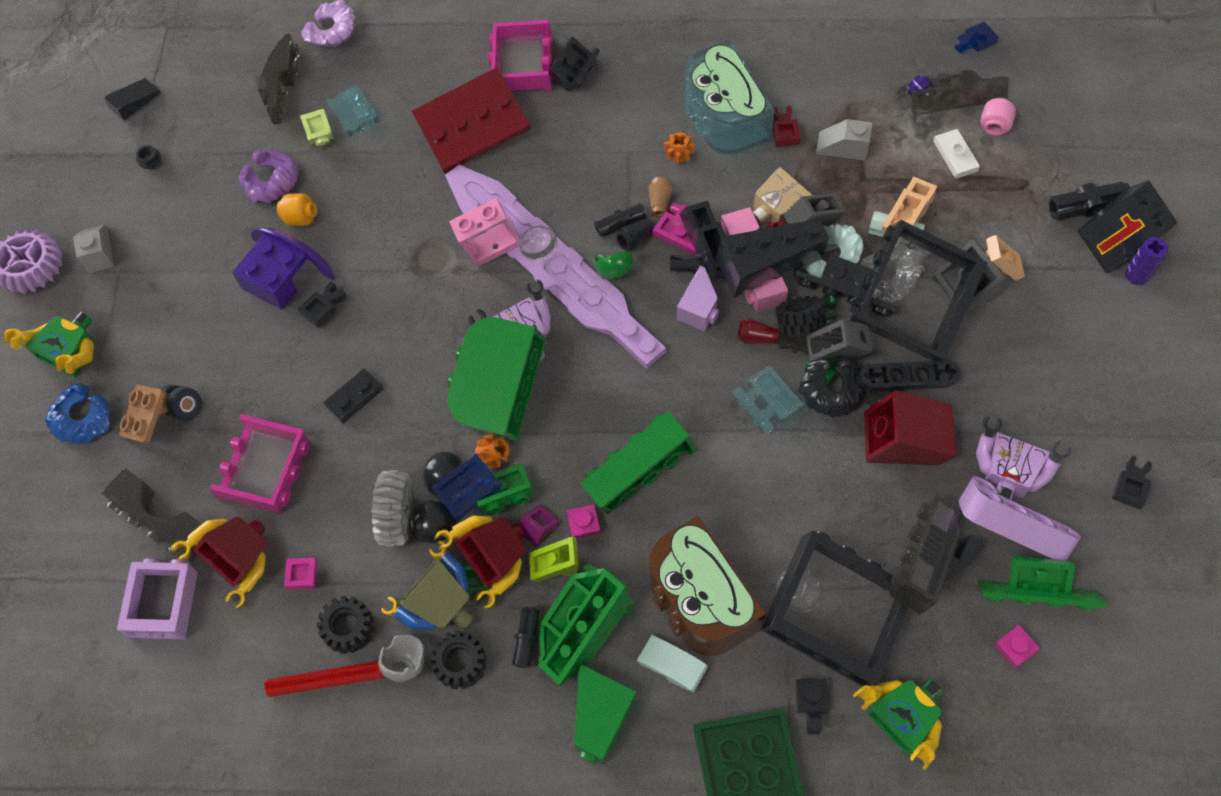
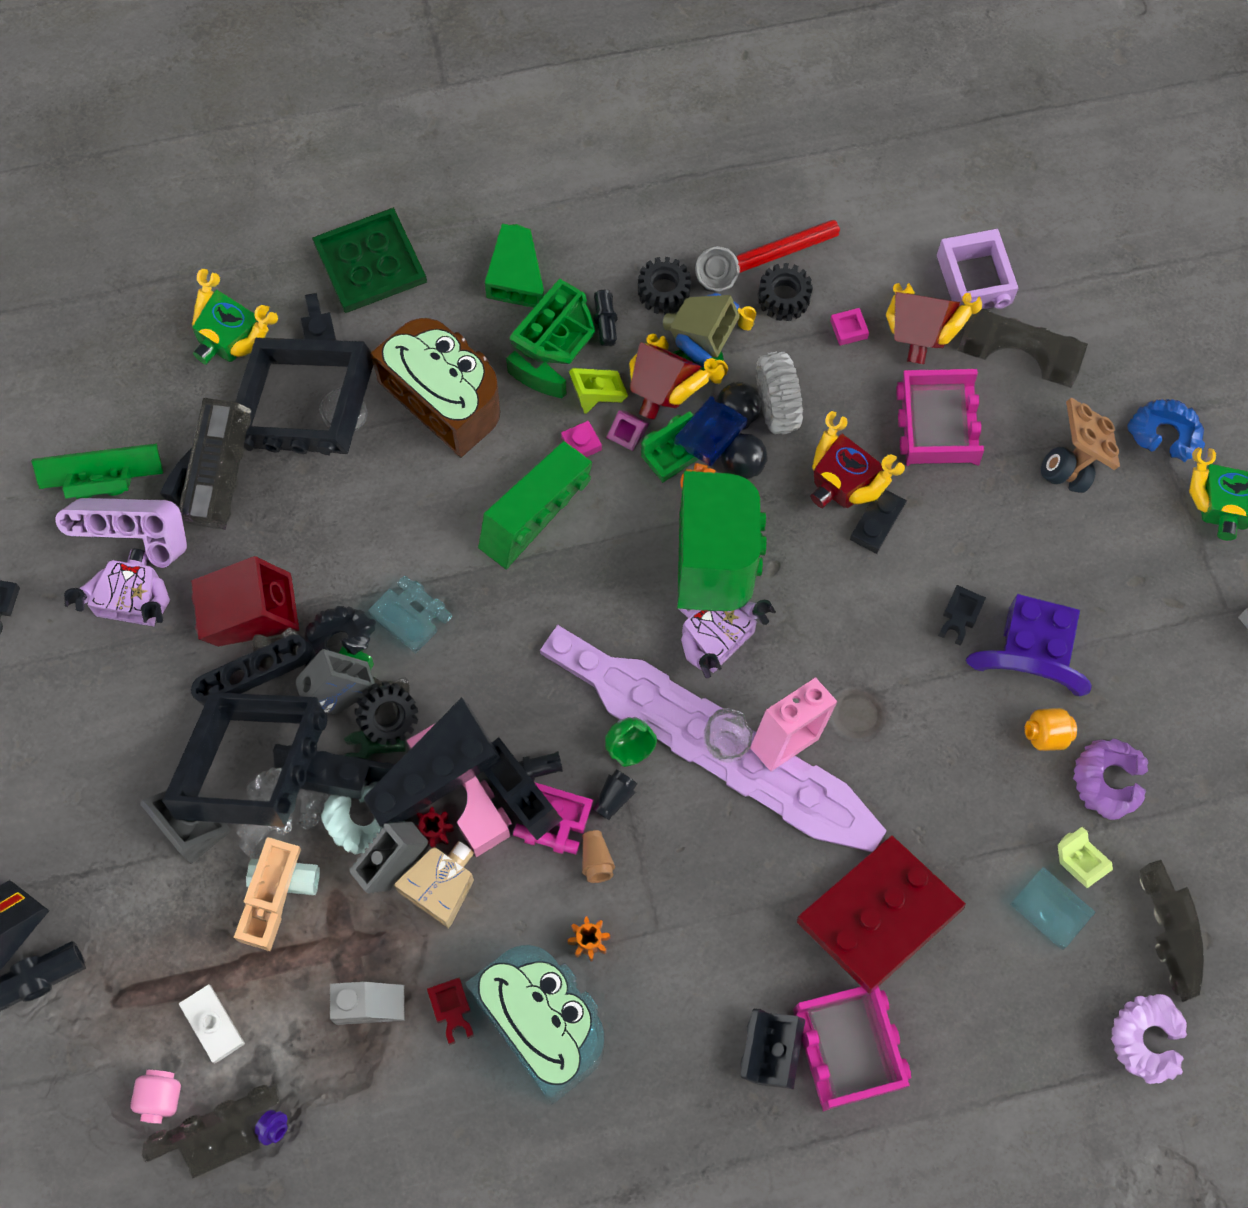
camera: 160 degrees right, 5 degrees up
(361, 429) = (847, 471): none -> torso
(604, 225) = (639, 813): black pin -> none
(672, 663) = (470, 326): light aqua slope -> none
(699, 302) = (512, 713): lavender slope -> none
(755, 332) = (438, 691): dark red cone -> none
(1005, 258) = (141, 849): light nougat plate -> none
(1016, 646) = (122, 417): dark pink plate -> none

